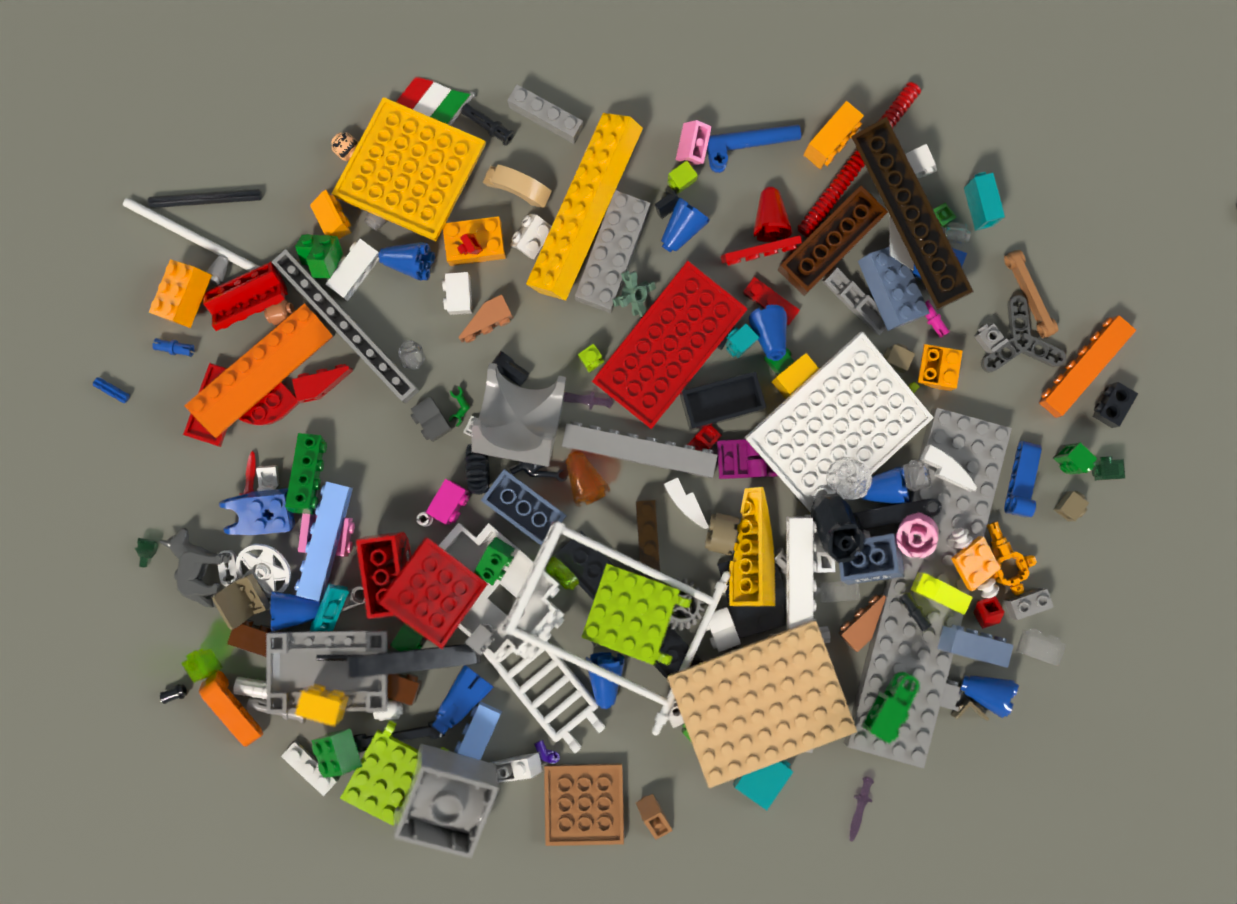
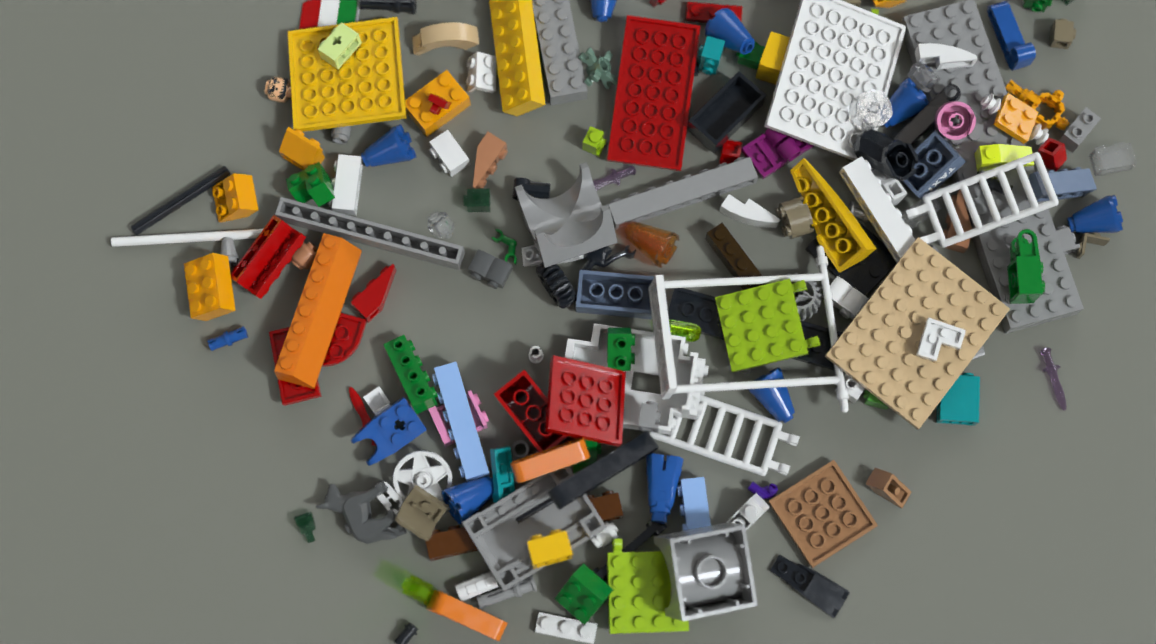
camera: 30 degrees left, 10 degrees down
(111, 390) = (193, 407): blue axle -> none
(250, 224) = (235, 197): none -> light orange slope
(370, 627) = (550, 460): none -> orange beam
(425, 140) = (339, 45): none -> yellowish green brick
(448, 502) = (548, 321): dark pink brick -> none
(457, 351) = (478, 200): none -> clear green brick
(536, 857) = (811, 585): none -> black piece
(771, 719) = (938, 333): none -> white plate
(906, 602) = (997, 220): none -> white bar

